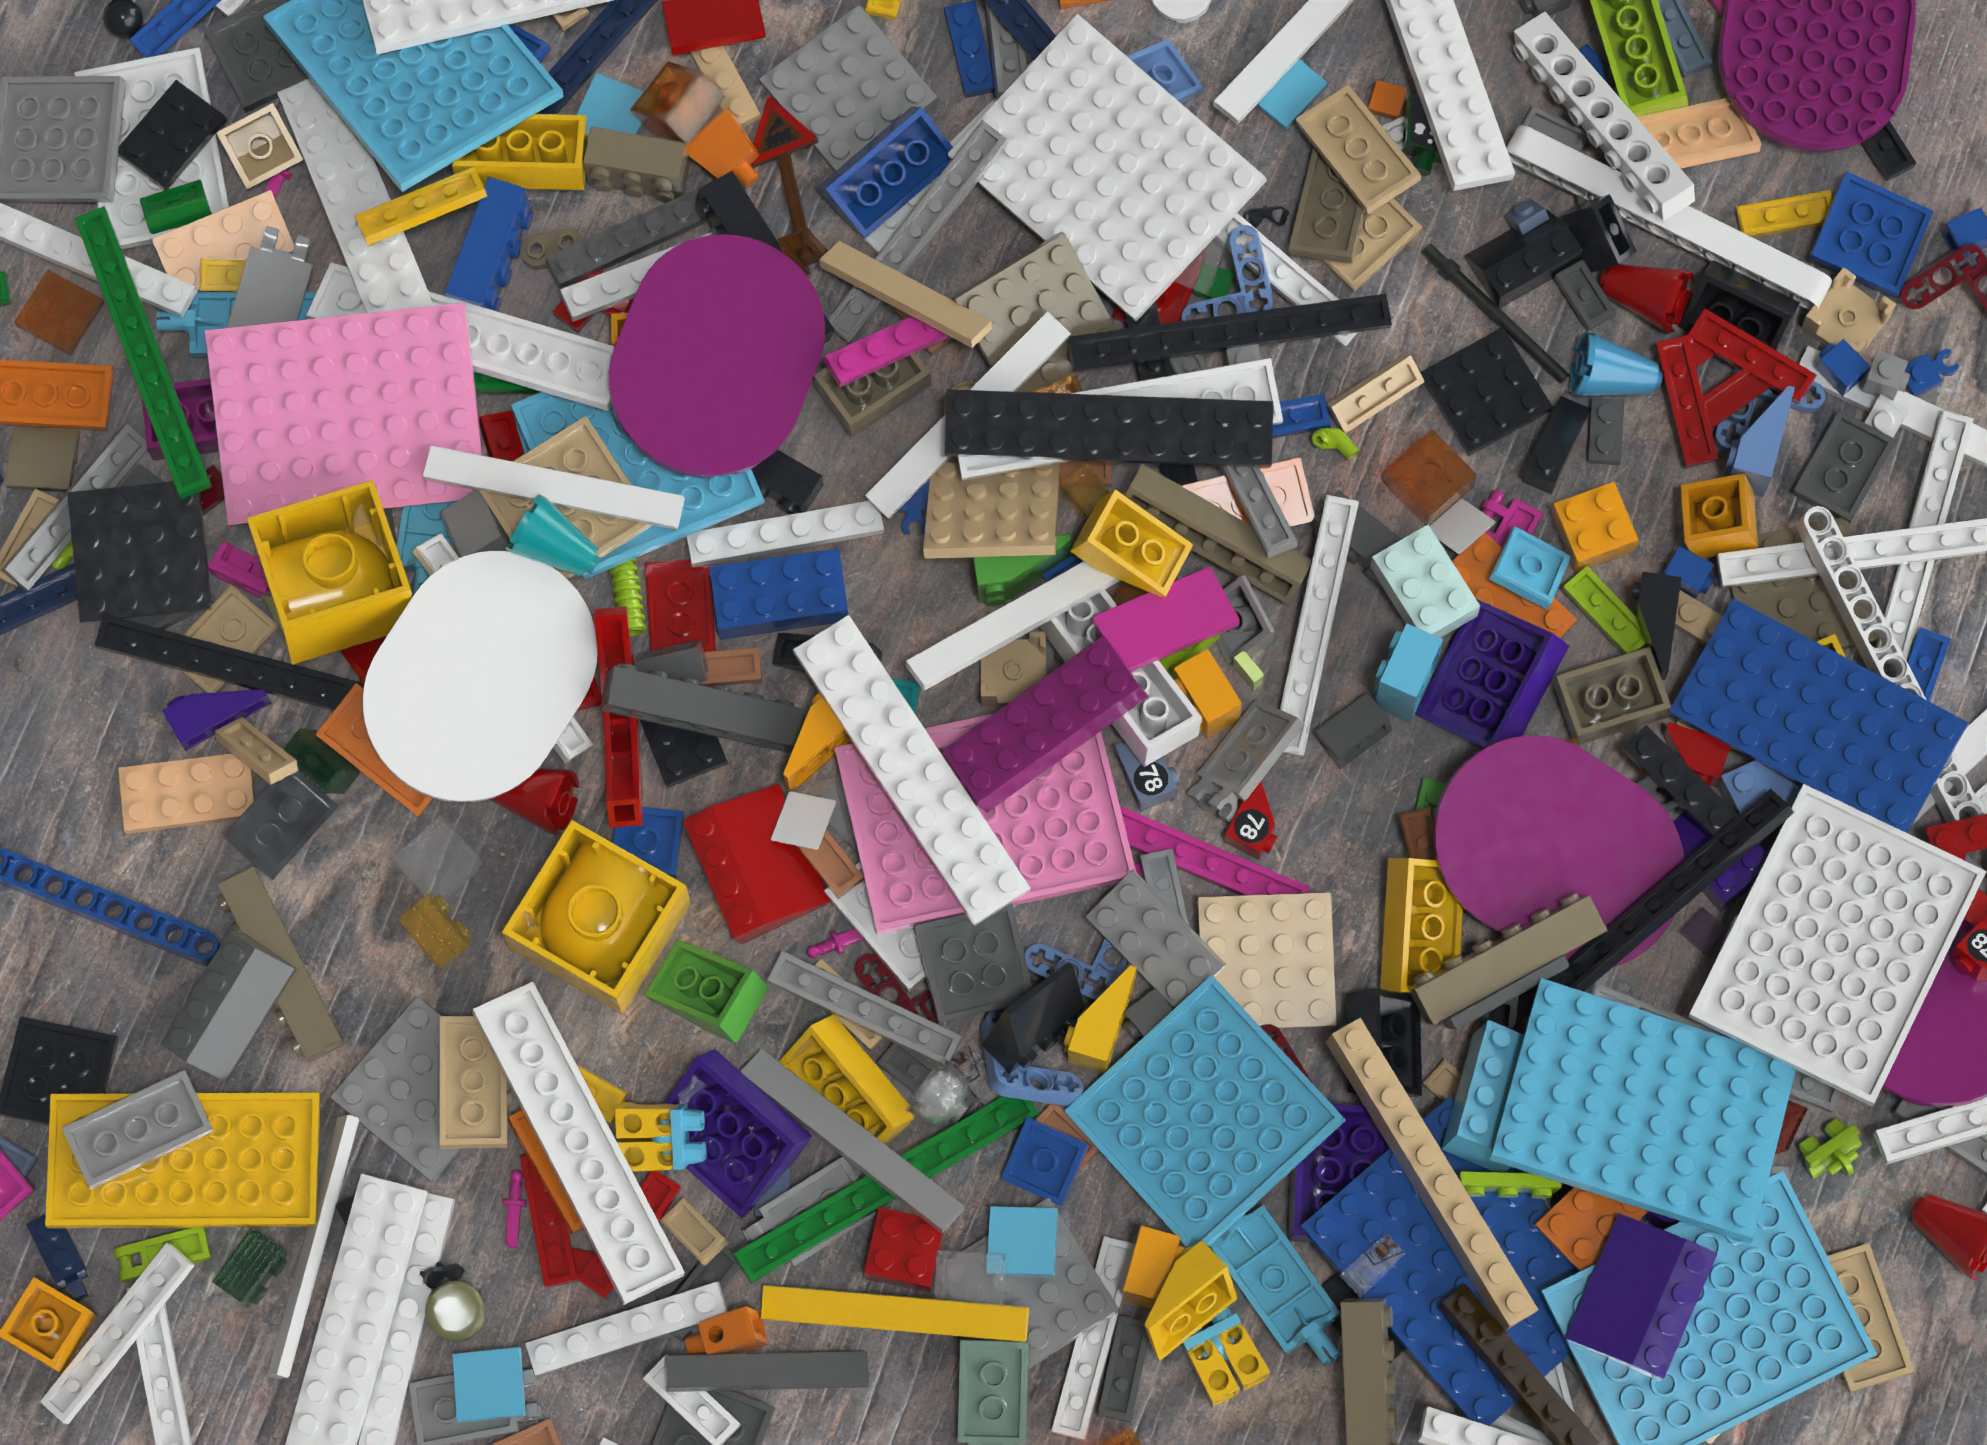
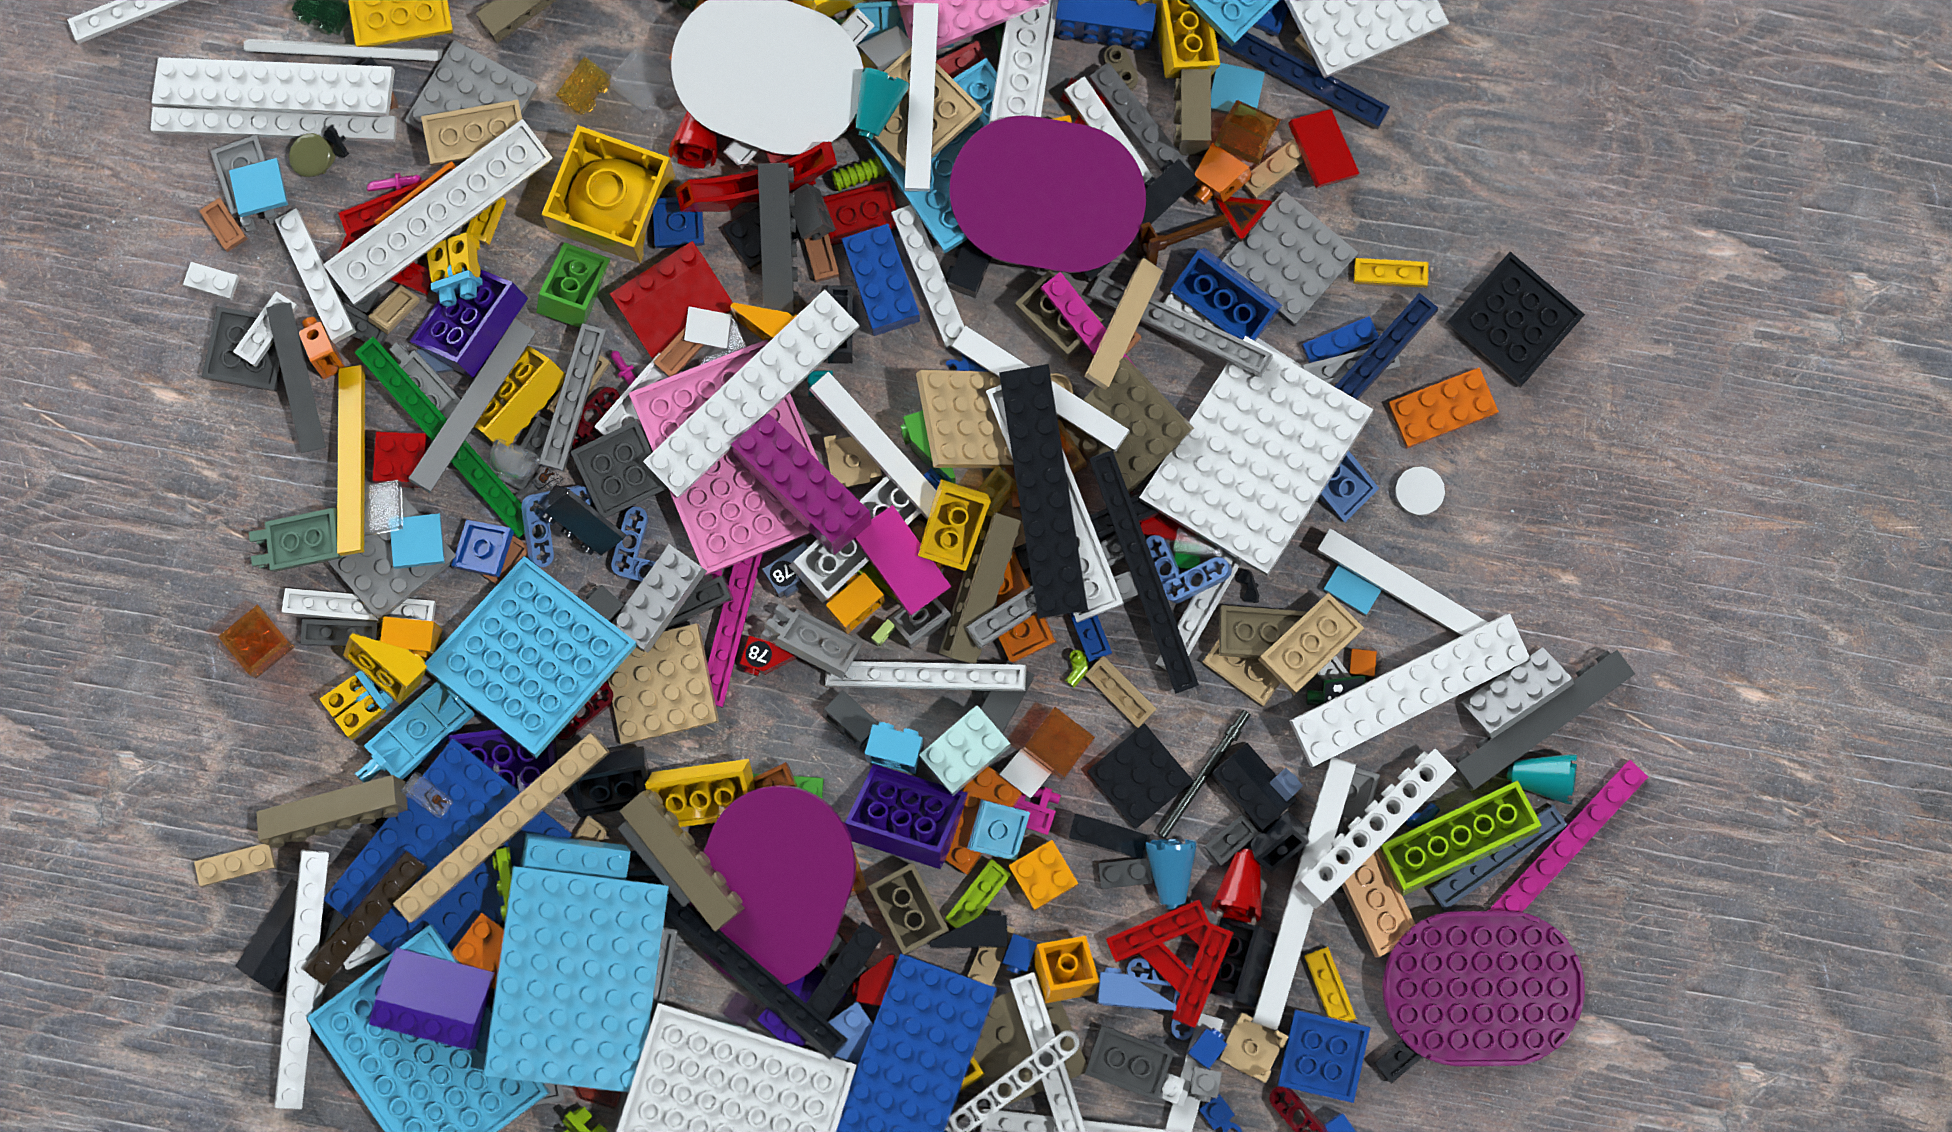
camera: 75 degrees right, 5 degrees up
(1098, 1028) = (581, 568): yellow slope -> none

